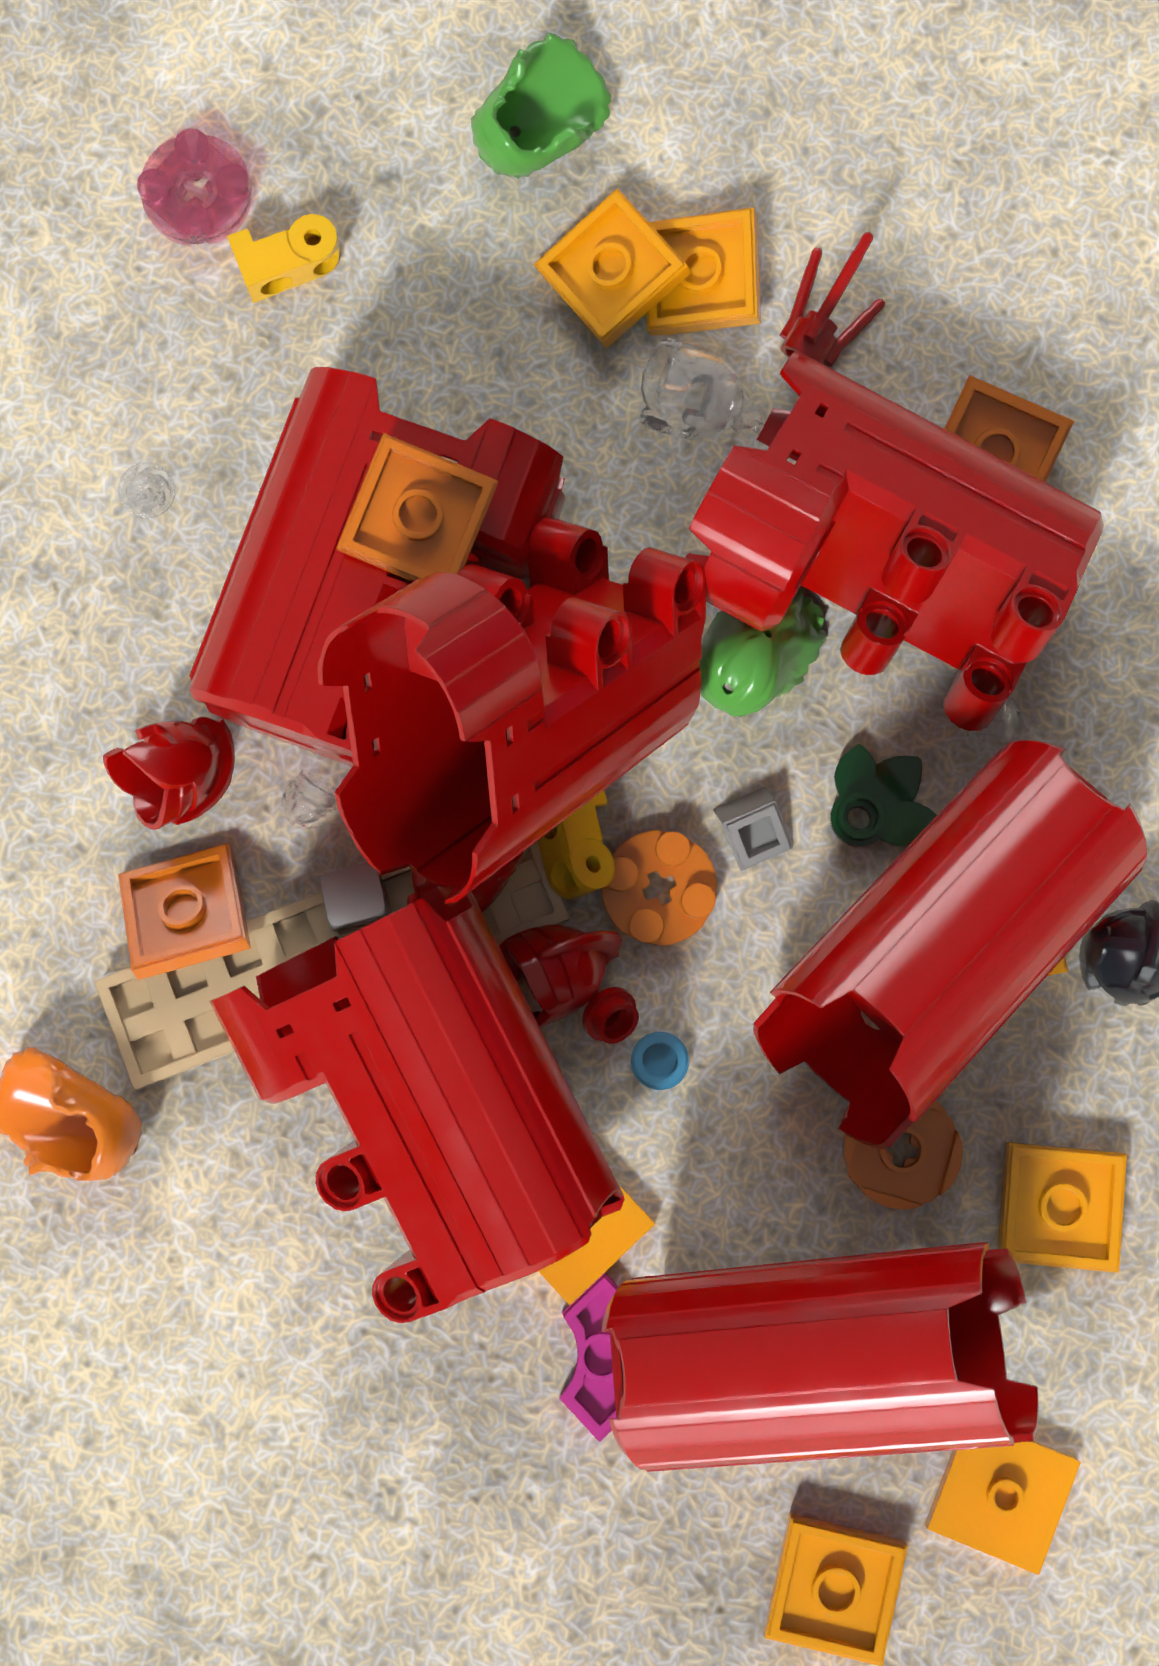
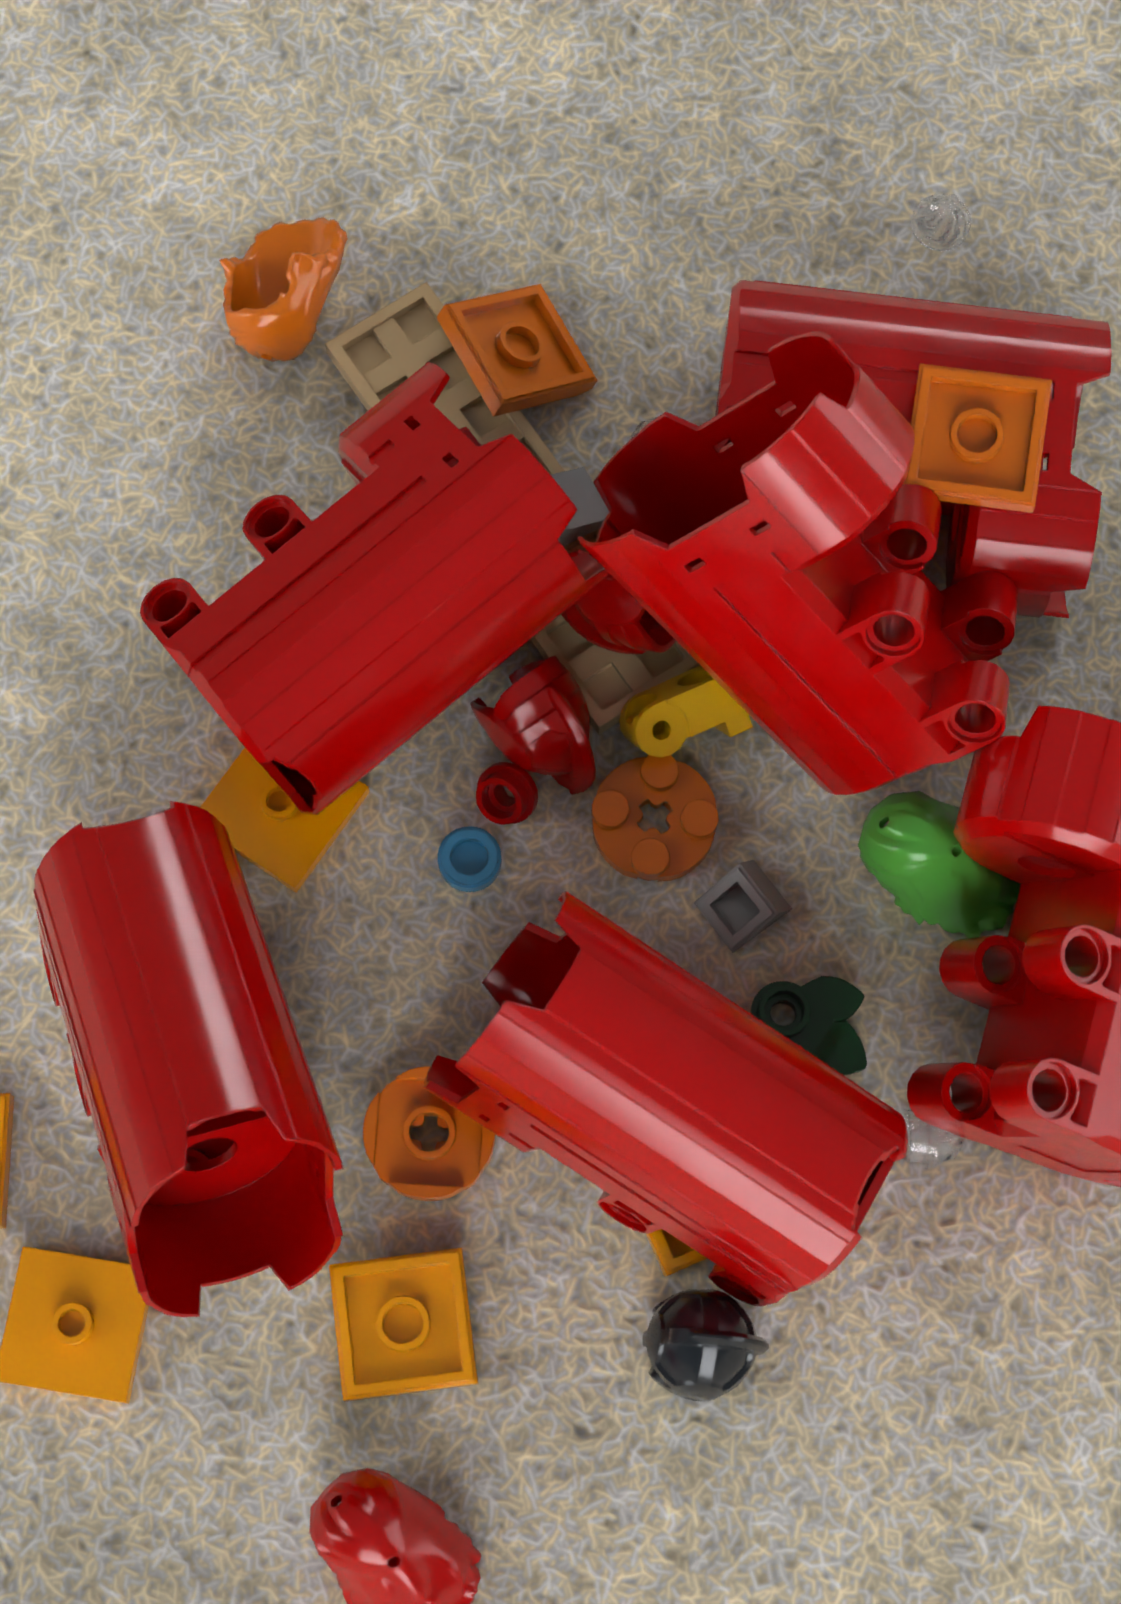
camera: 70 degrees right, 10 degrees down
(175, 770) = (661, 316): red helmet -> none

